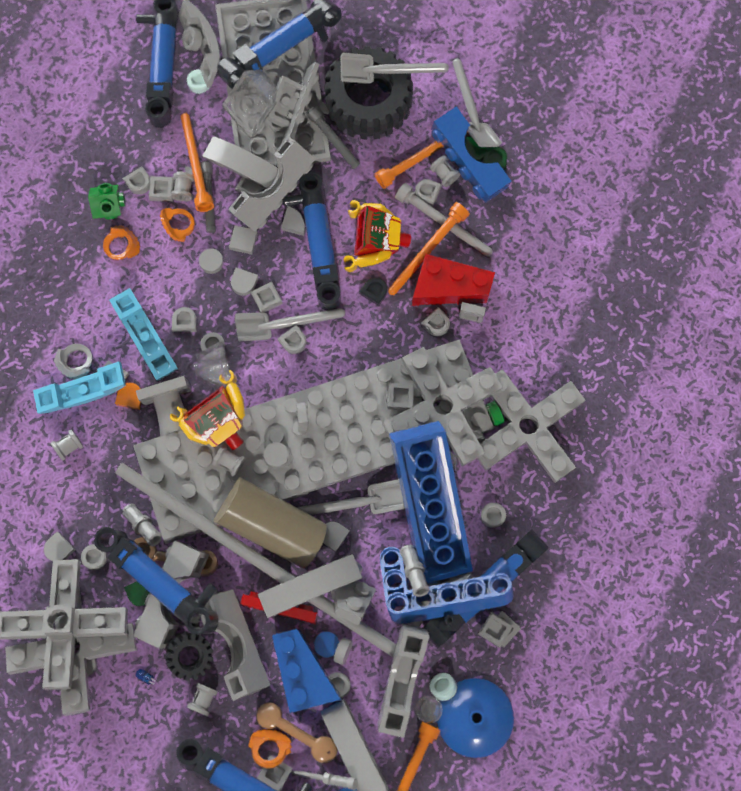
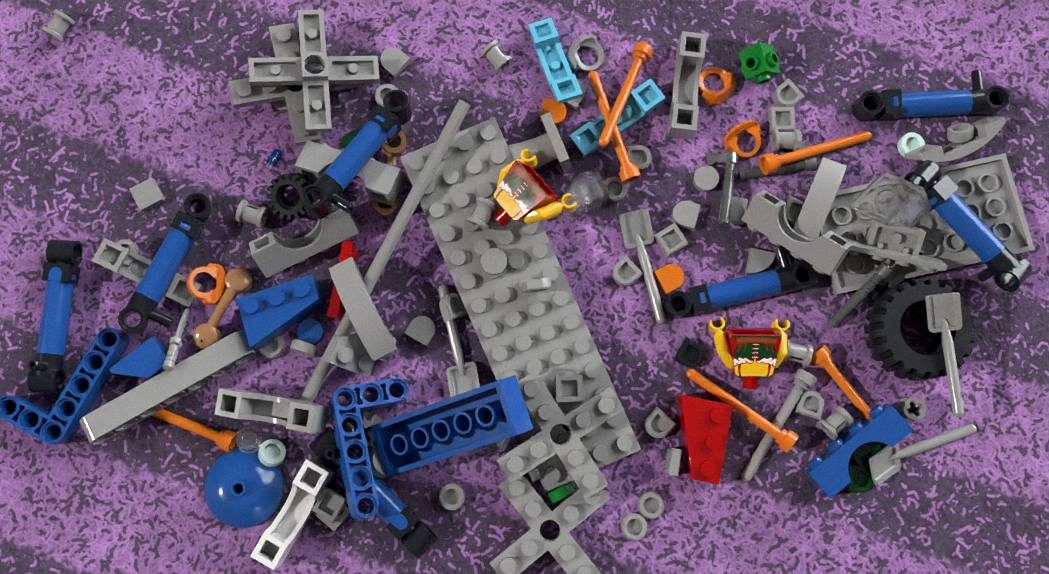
camera: 85 degrees right, 5 degrees up
(82, 308) = (641, 54): none -> orange piece
(140, 273) = (684, 97): none -> light grey arch
(142, 524) = (419, 136): light grey pin -> none
(196, 328) = (628, 171): none -> orange piece
(197, 237) = (730, 161): none -> dark grey piece
(271, 523) = (424, 264): dark tan brick -> none
(302, 301) = (669, 277): none -> orange tile
(314, 502) = (452, 307): none -> light grey tile
(381, 194) = (799, 353): none -> light grey bush
(414, 570) = (379, 414): light grey pin -> none
(436, 109) = (916, 413): none -> light grey bush
(503, 665) = (285, 529): none -> white arch
(509, 336) = (650, 505): none -> light grey tile
(527, 352) = (634, 526): none -> light grey tile

